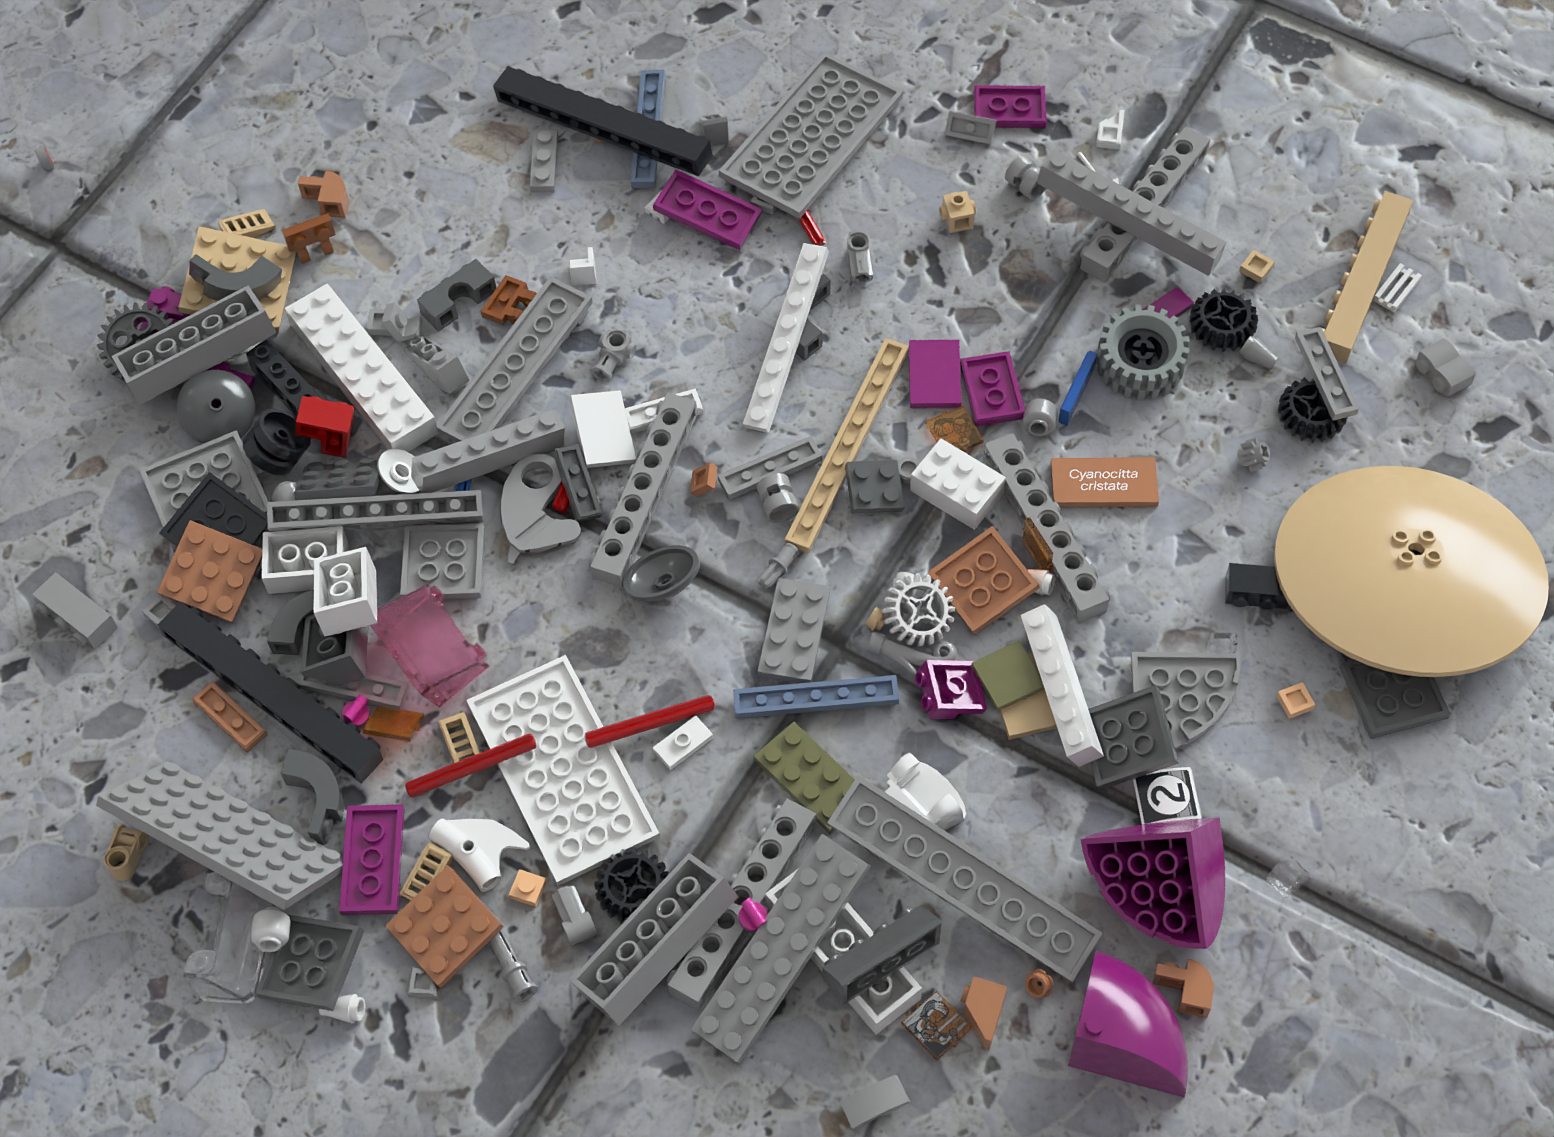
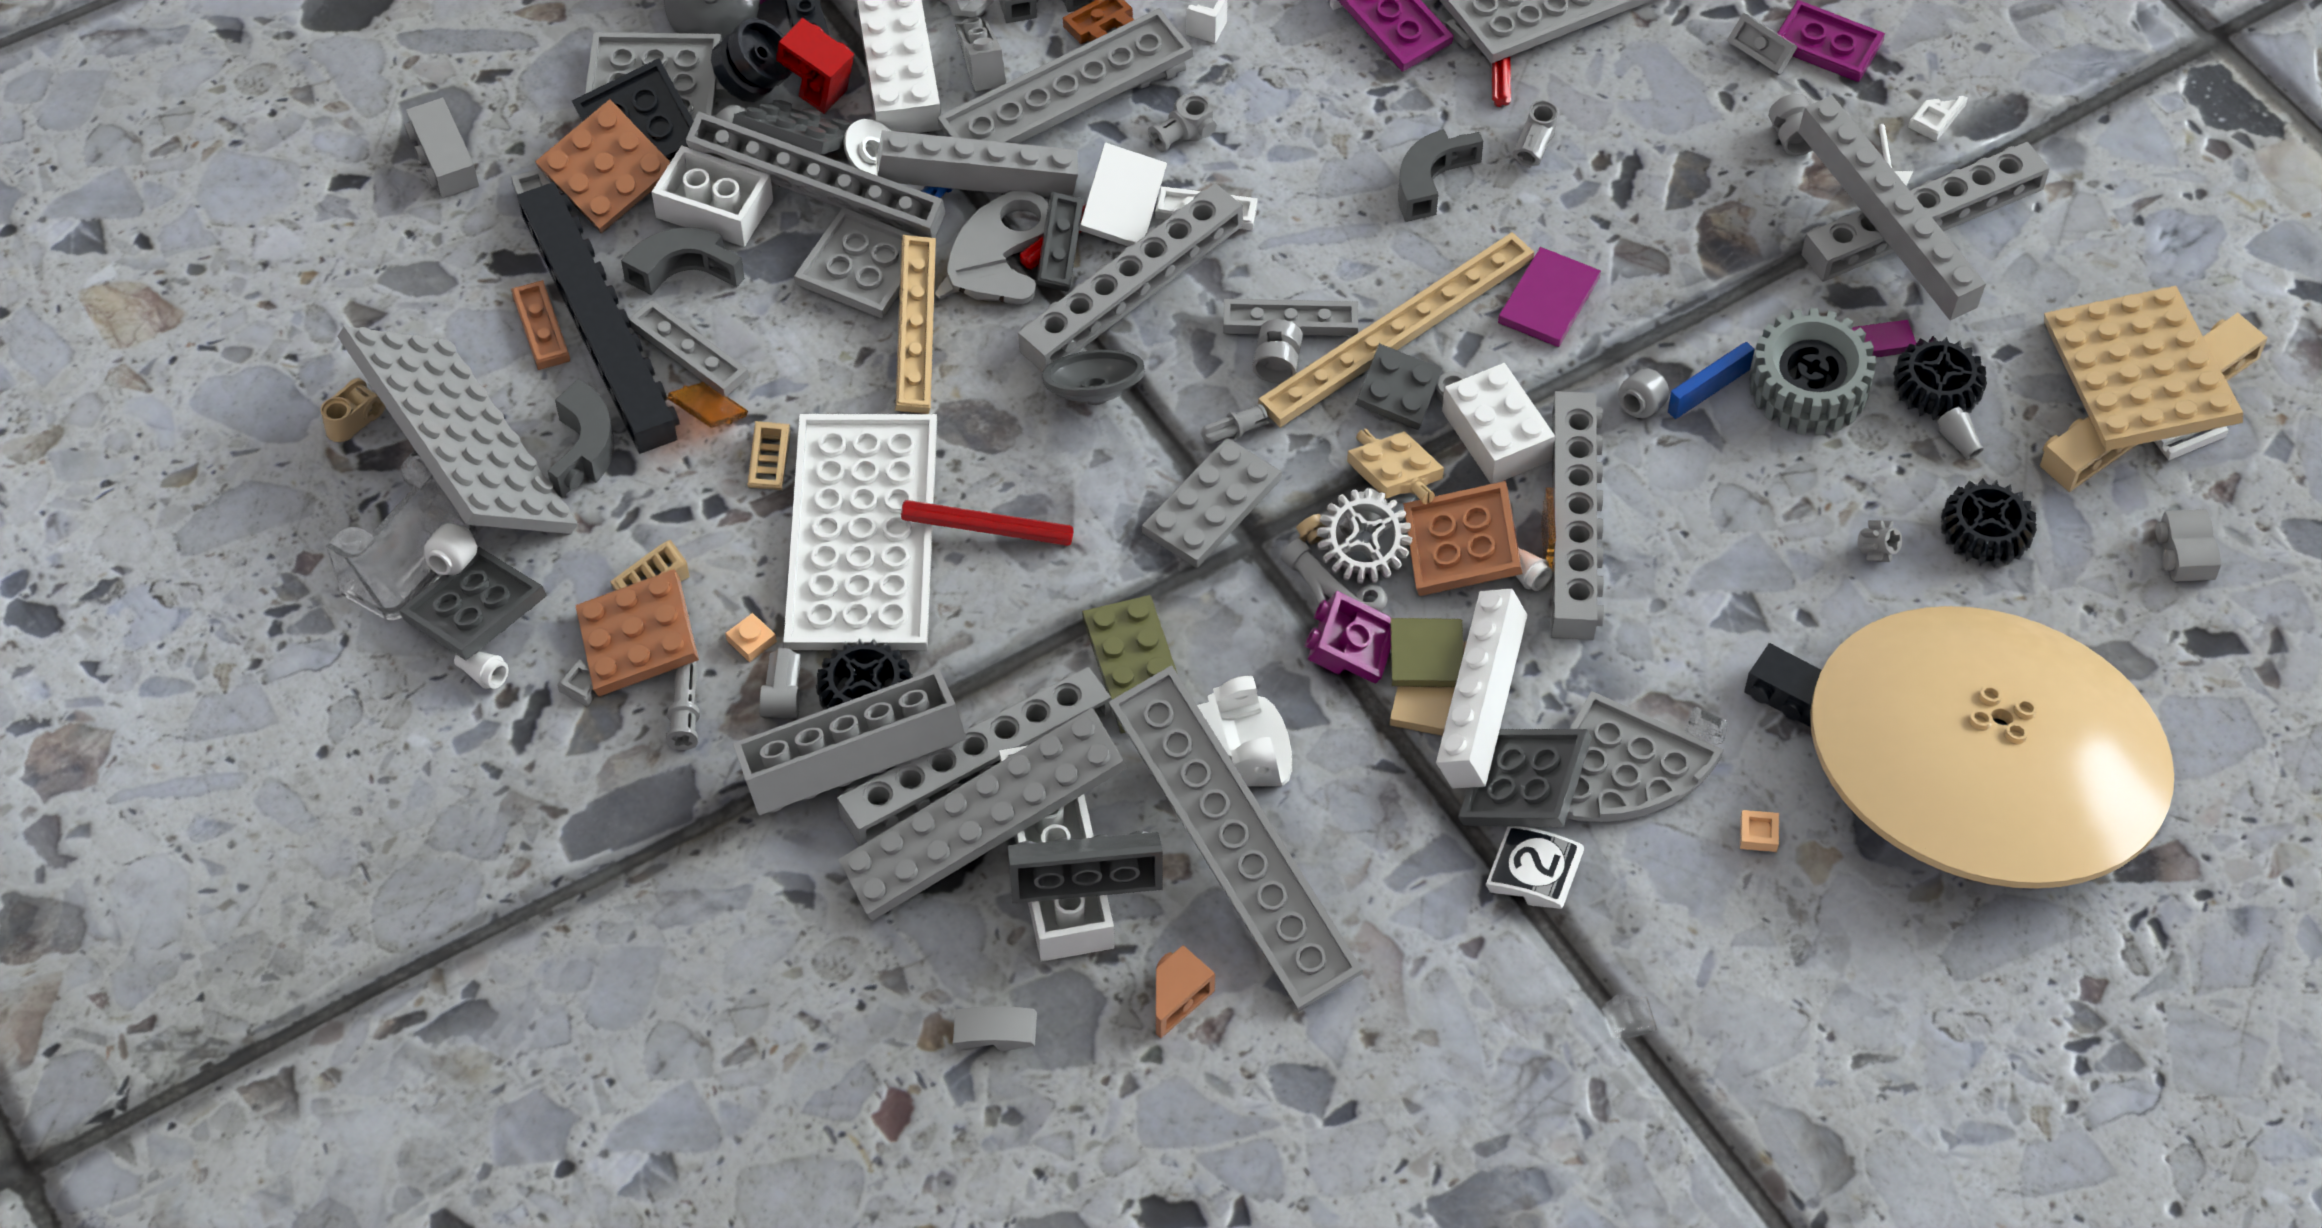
camera: 25 degrees right, 5 degrees down
(334, 657) = (691, 295): dark grey slope -> none
(345, 591) = (727, 237): white brick -> none
(356, 711) = (676, 375): dark pink plate -> none
(372, 860) = (601, 533): magenta plate -> none
(429, 644) = (788, 336): clear pink windscreen -> none
(470, 765) = (763, 482): red axle -> none
(477, 846) = (720, 569): white pin -> none
(510, 592) = (915, 324): none -> tan tile
(683, 742) = (1013, 564): white plate -> none
(703, 479) = (1206, 298): nougat plate -> none
(752, 915) = (970, 763): dark pink plate -> none
(785, 338) = (1391, 181): white plate -> none
(816, 696) = (1192, 580): sand blue plate -> none
(906, 546) = (1395, 465): none -> tan plate
(936, 1025) = (1116, 984): piece -> none
(955, 428) = (1536, 367): clear orange piece -> none
(957, 211) = (1688, 122): tan brick -> none
(992, 388) = (1608, 340): magenta tile -> none
(1033, 986) = (1257, 992): nougat plate -> none
(1105, 482) = (1679, 497): nougat tile -> none
(1129, 1030) = (1323, 1078): magenta brick -> none
(1163, 877) = (1471, 942): magenta brick -> none
(1194, 983) = (1436, 1074): nougat brick -> none
(1257, 266) = (2022, 336): tan plate -> none
(1326, 373) = (2023, 483): light grey plate -> none
(1350, 257) = (2142, 368): none -> tan plate
(1393, 700) = (1882, 882): dark grey plate -> none

